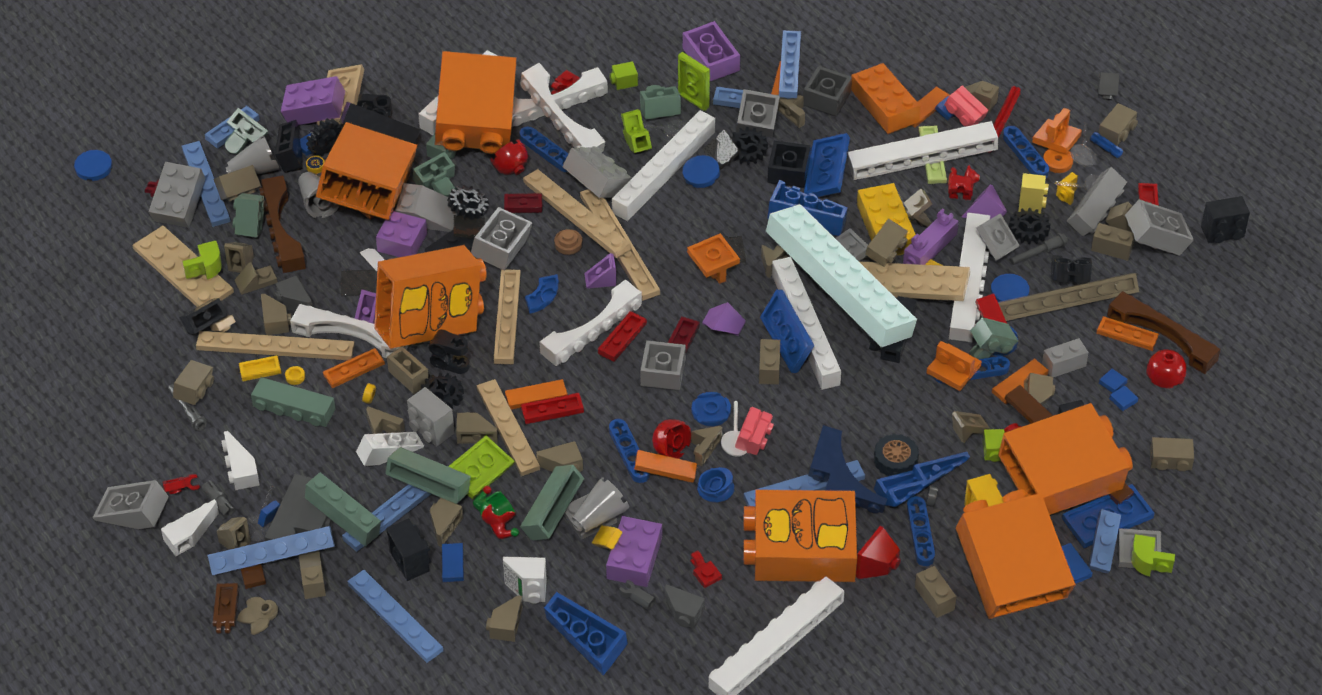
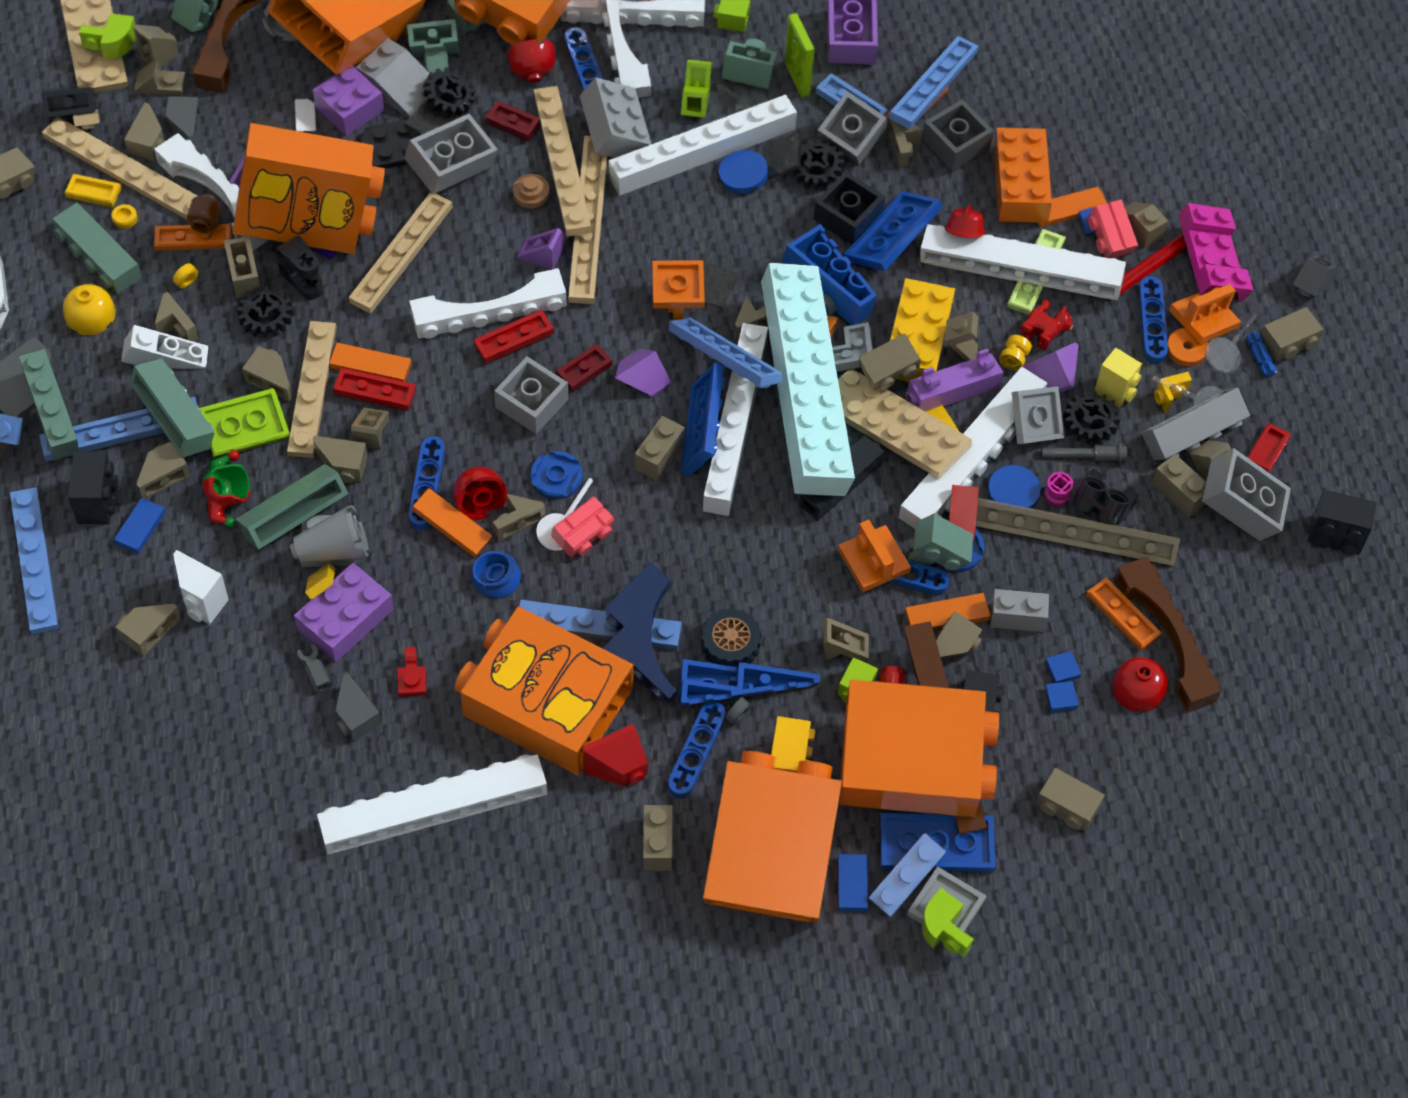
camera: 25 degrees right, 10 degrees up
(315, 443) = (88, 309): none -> yellow cylinder
(356, 347) = (204, 213): none -> reddish brown head
(430, 417) = (224, 336): light grey brick -> none
(543, 294) = (463, 243): blue tile -> none
(568, 431) = (369, 427): none -> dark tan slope
(588, 633) = (222, 693): blue wedge -> none
(782, 282) = (725, 352): none -> medium blue plate
(873, 140) = (965, 223): none -> red piece
(954, 205) = (1016, 350): none -> yellow wheel
(1026, 87) = (1211, 249): none -> dark pink piece
(1038, 276) = (1054, 493): none -> dark pink wheel

